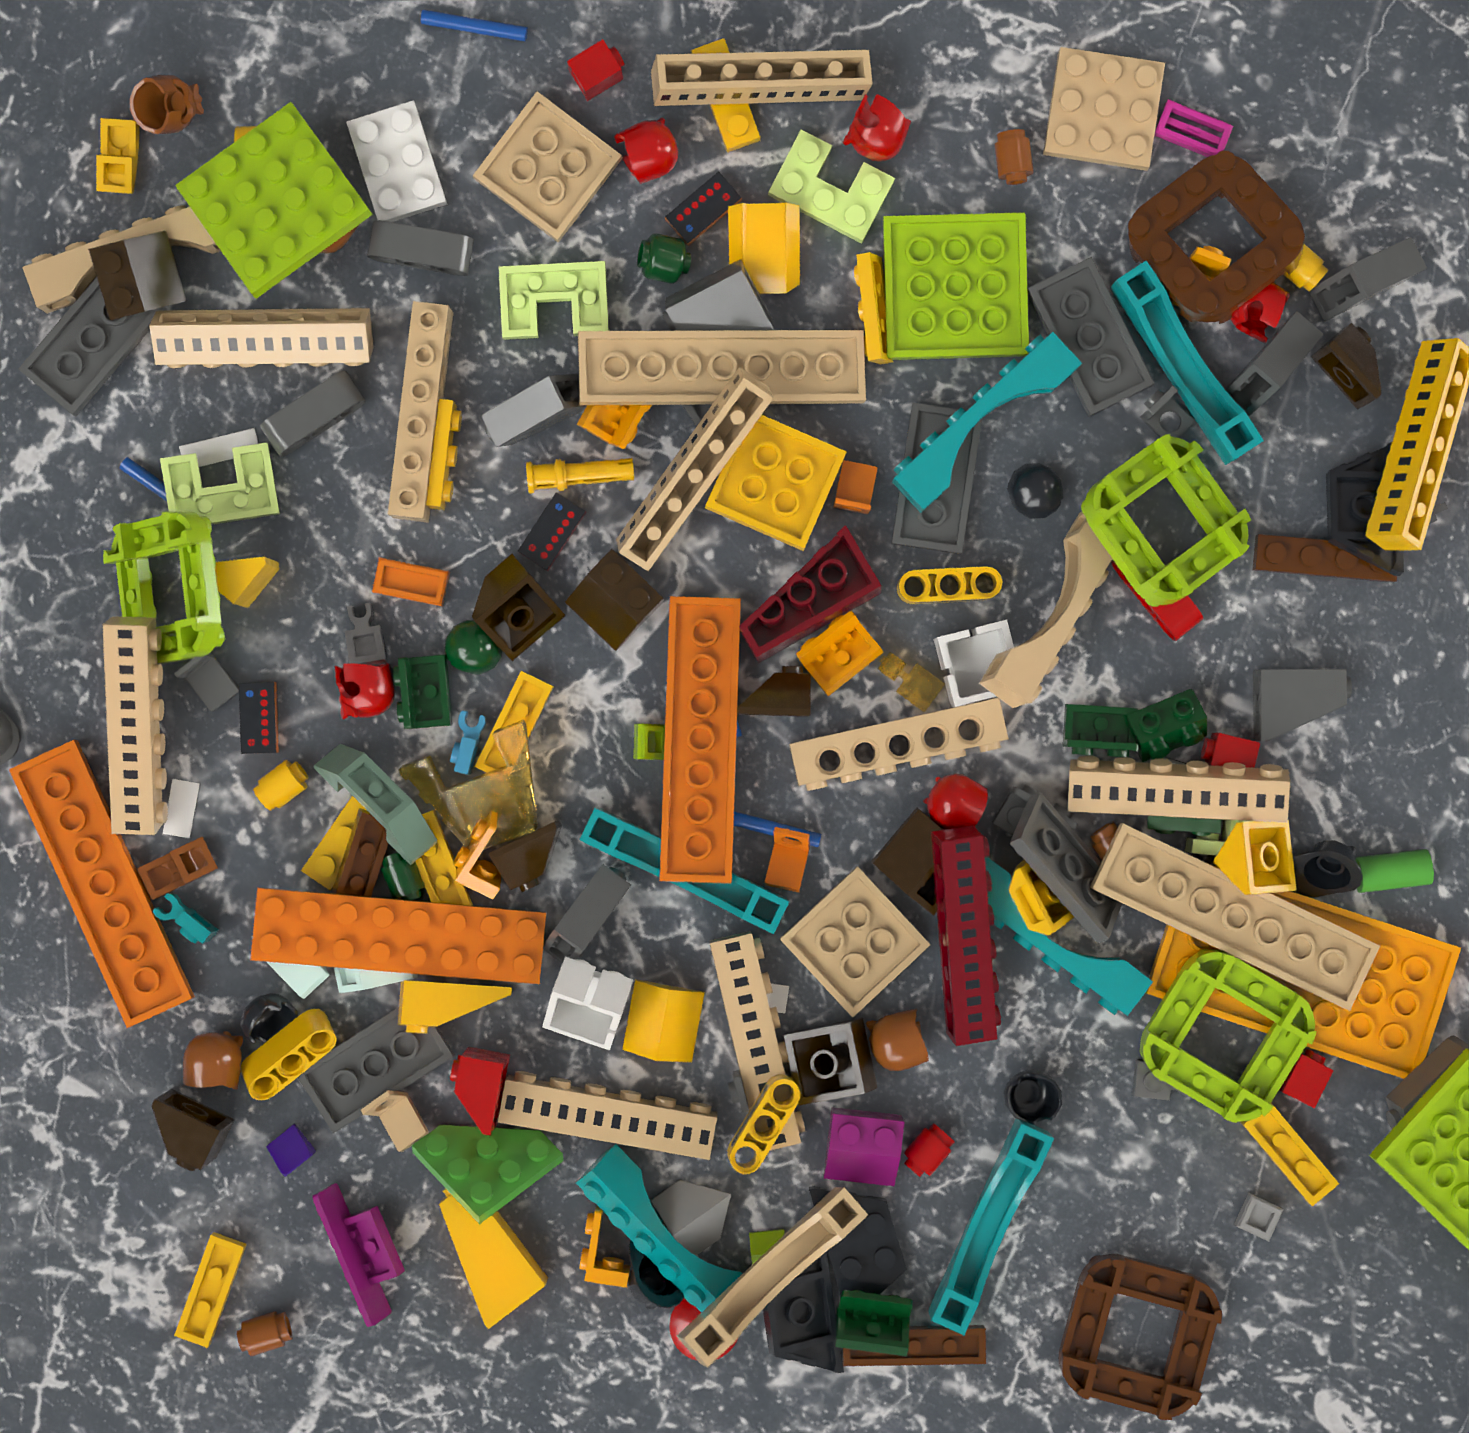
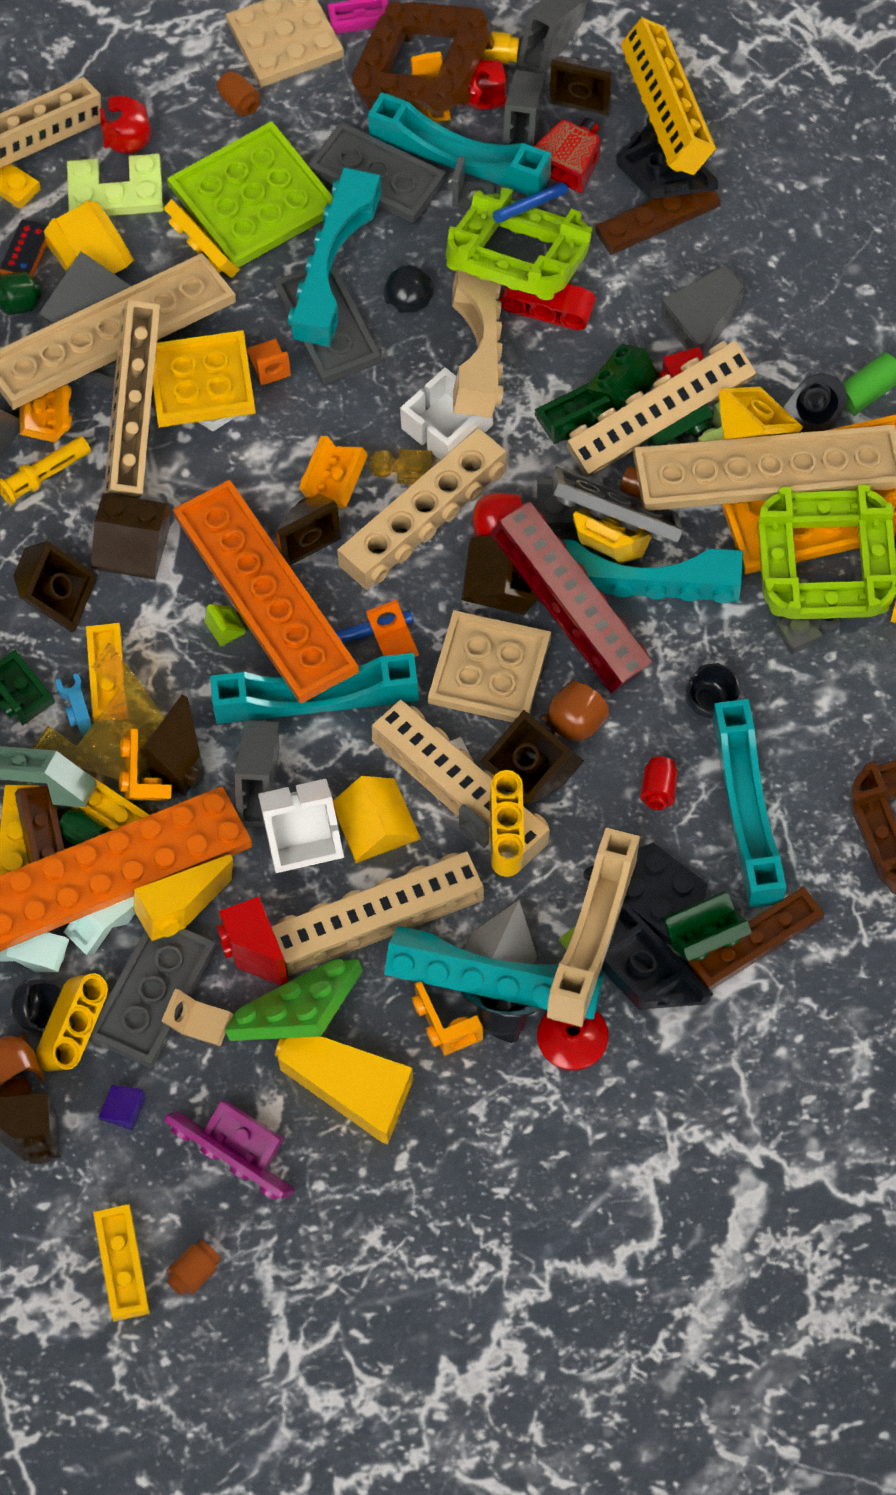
camera: 30 degrees left, 25 degrees down
(471, 648) = (36, 636): dark green hair -> none
(552, 531) = (48, 518): black tile -> none
(820, 591) = (285, 445): dark red wedge -> none
(863, 1146) = (601, 802): magenta slope -> none
(964, 576) = (393, 370): yellow beam -> none
(1211, 473) = (530, 202): none -> blue bar
(1290, 437) = (572, 152): none -> red torso

